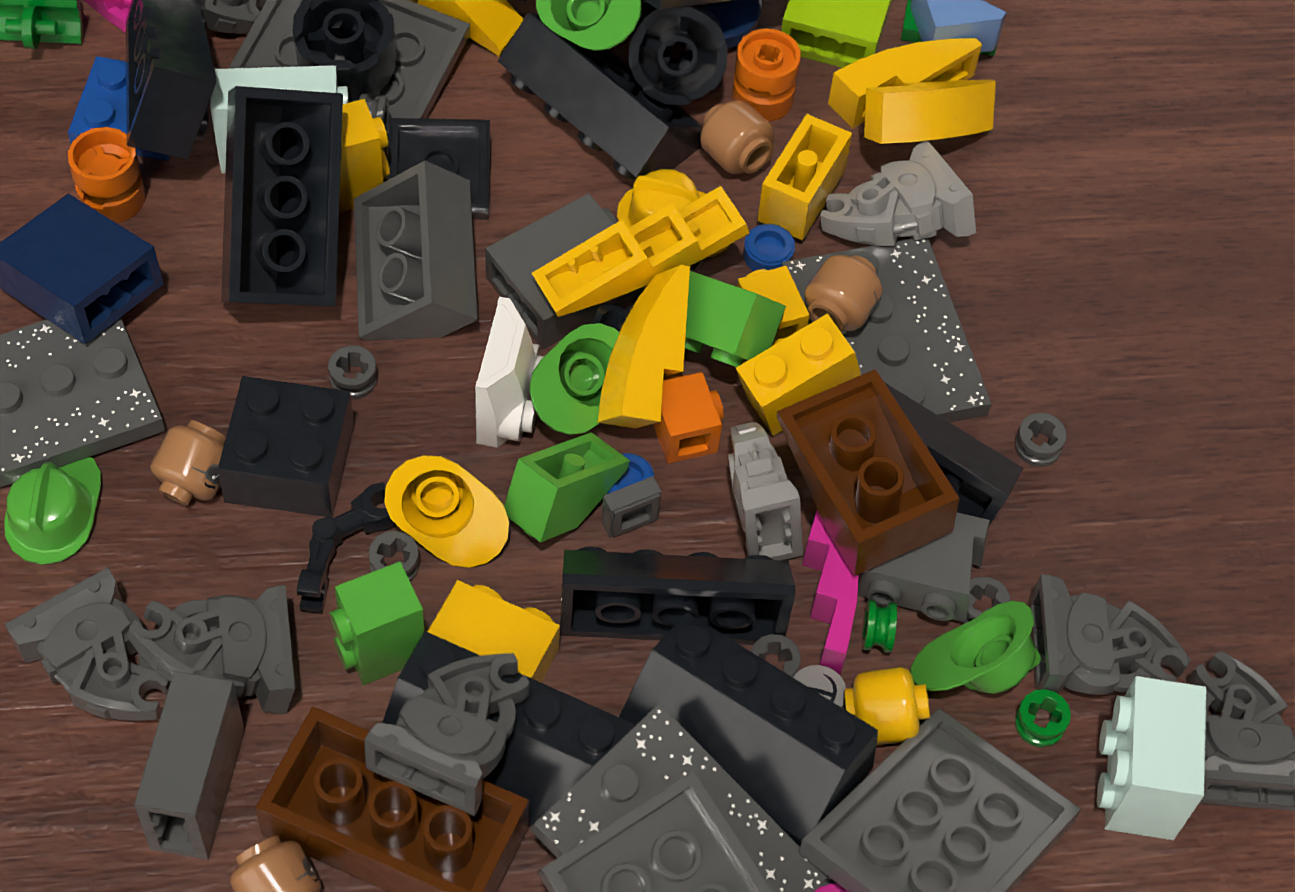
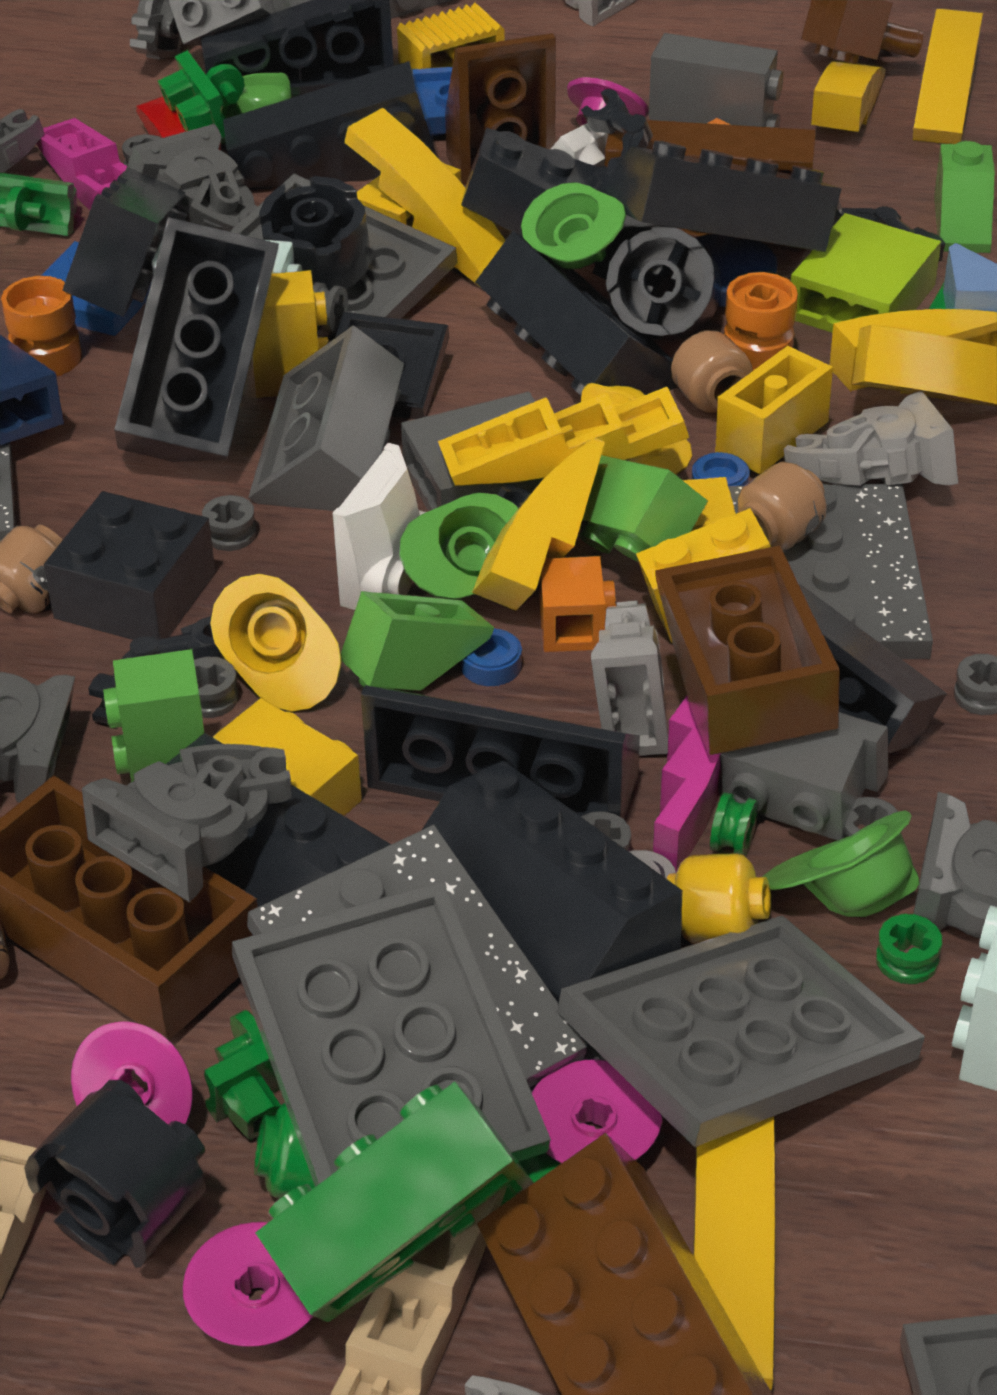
camera: 20 degrees right, 15 degrees down
(631, 507) = (483, 672): dark grey tile -> none

